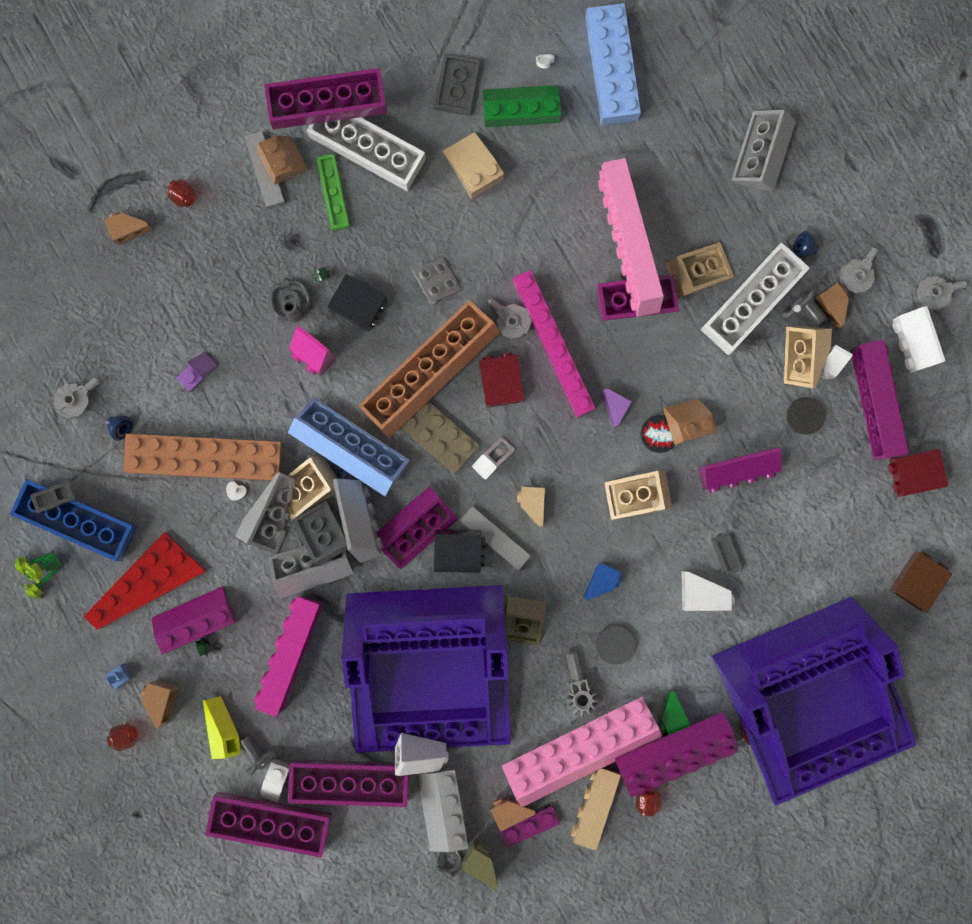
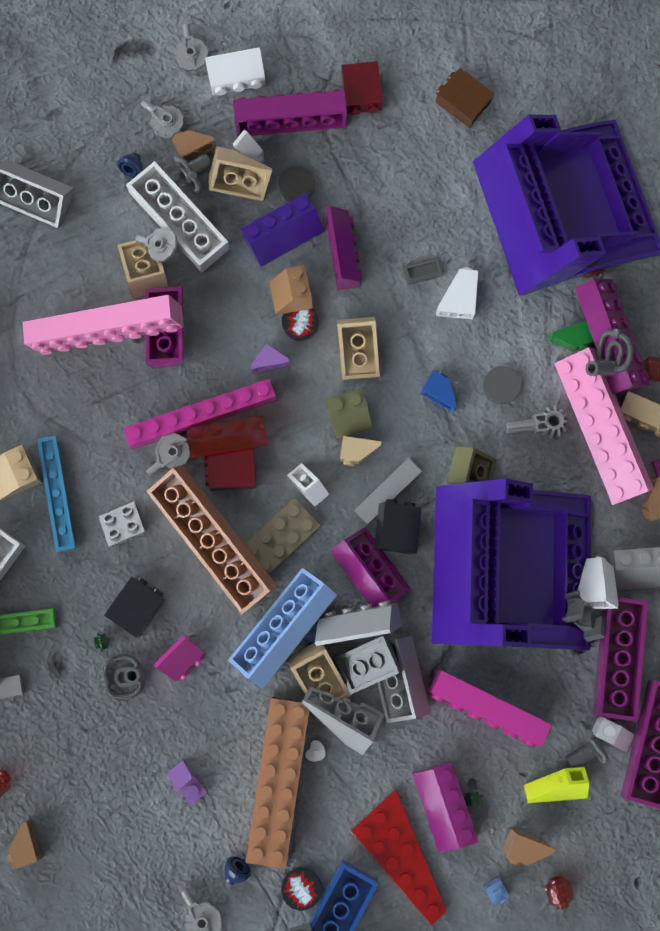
camera: 85 degrees left, 5 degrees down
(107, 489) = (301, 889): none -> tile
(384, 743) = (584, 617): none -> dark grey piece
(460, 214) = (56, 493): none -> dark azure plate
(531, 372) = (227, 436): none -> clear red slope
(568, 491) = (348, 413): none -> olive slope
(640, 750) = (609, 367): none -> dark grey piece
(722, 284) = (161, 244): none -> light grey piece
(753, 406) = (282, 230): none -> dark purple slope

